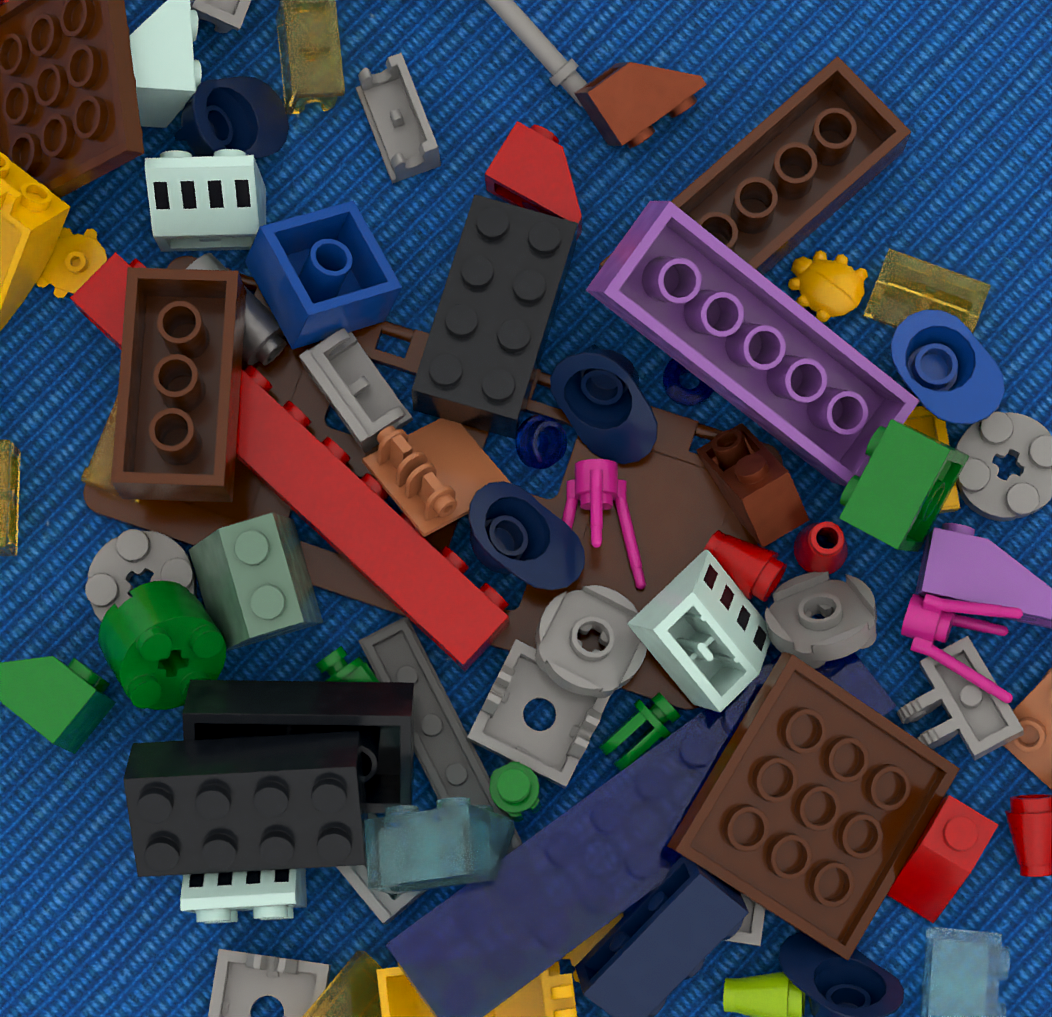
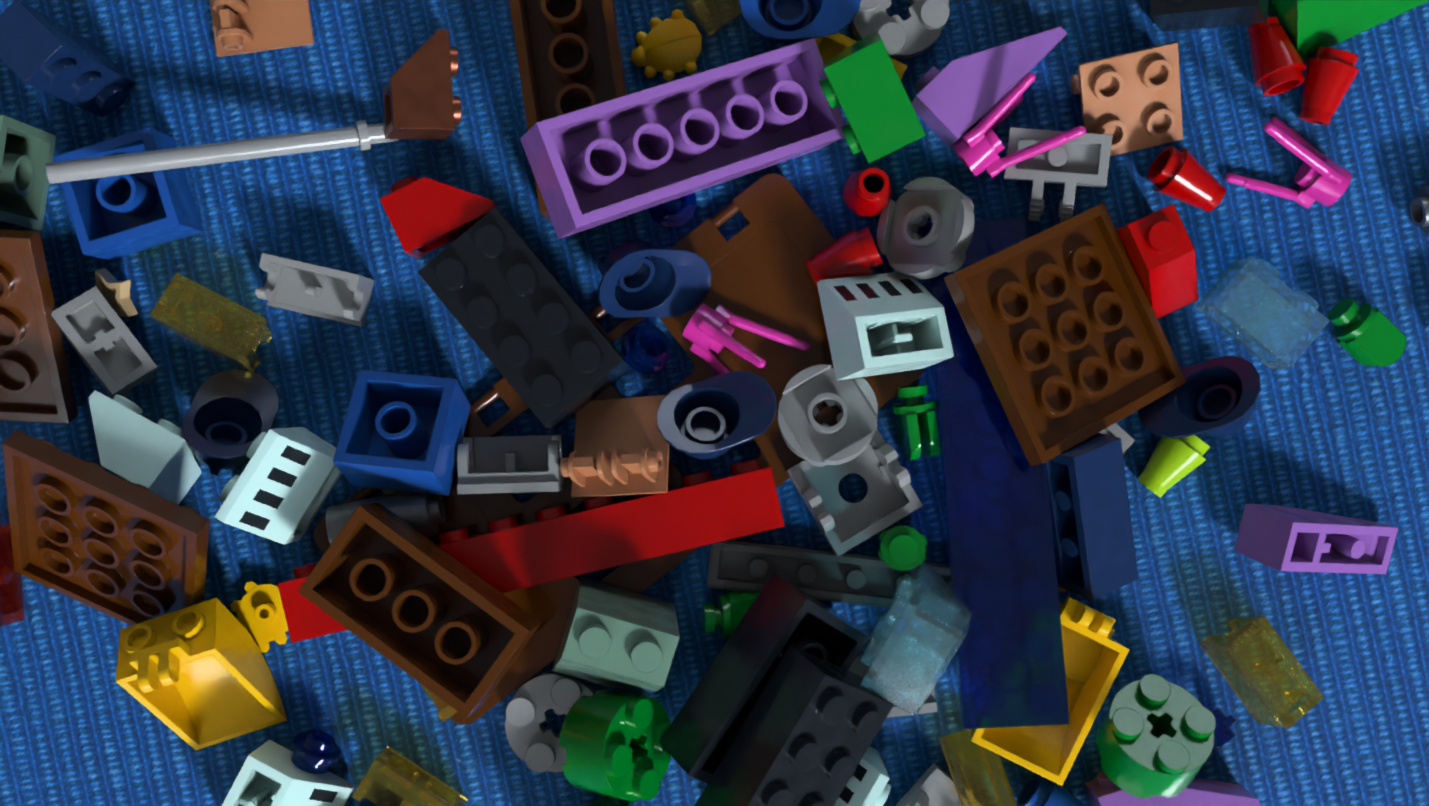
camera: 60 degrees left, 10 degrees up
(753, 484) = (789, 209): copper slope -> none

